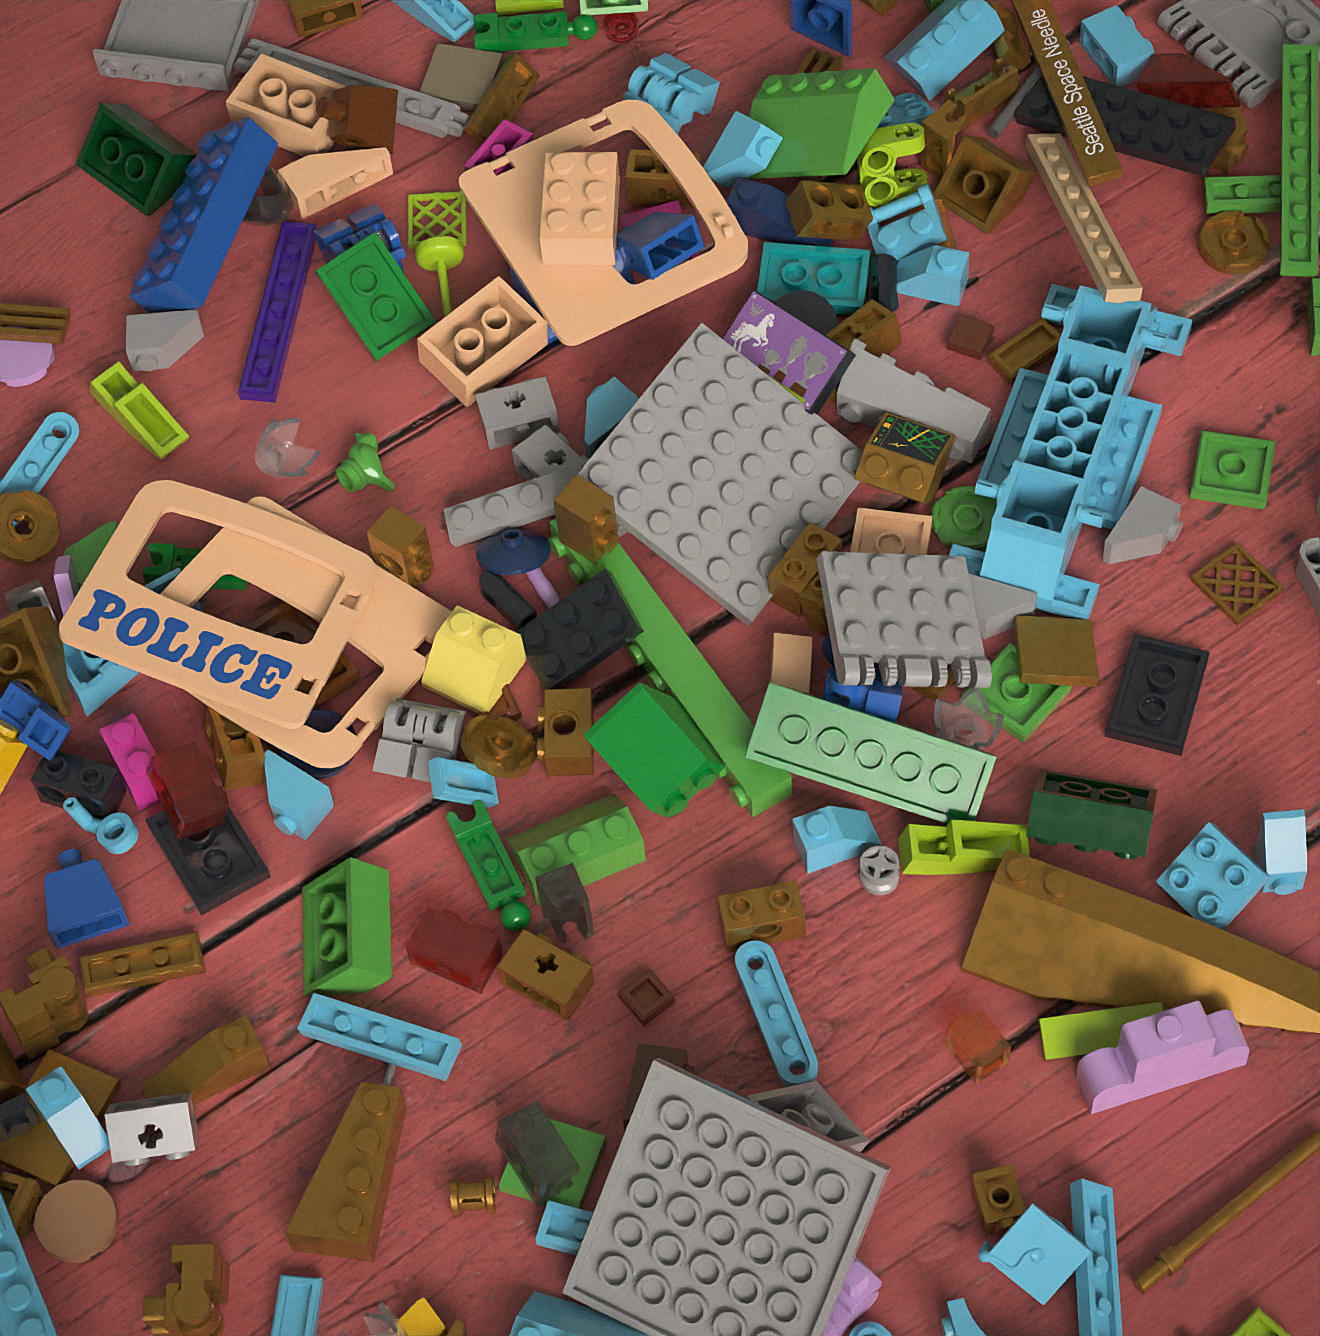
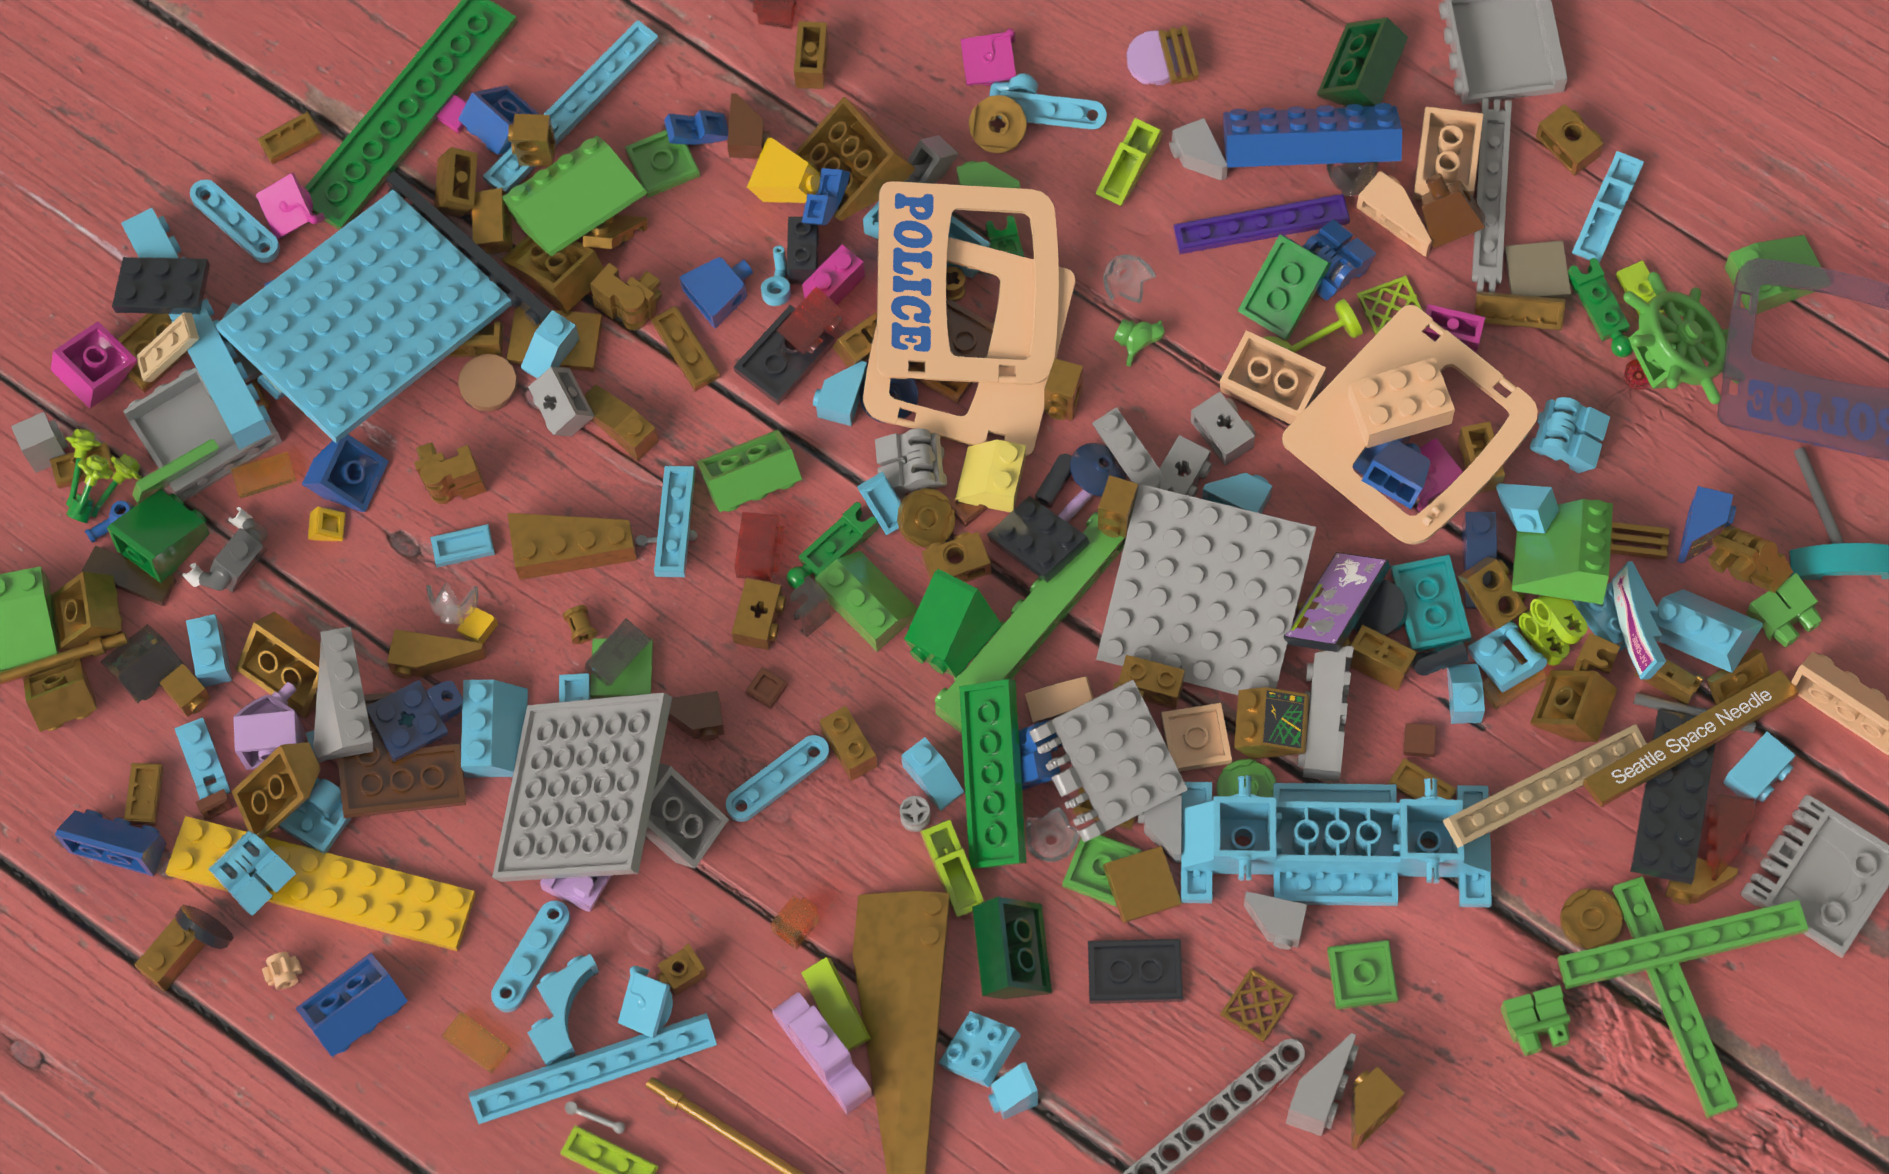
camera: 70 degrees right, 10 degrees up
(65, 581) = (950, 172): lavender tile -> none
(936, 82) = (1635, 617): none -> slope

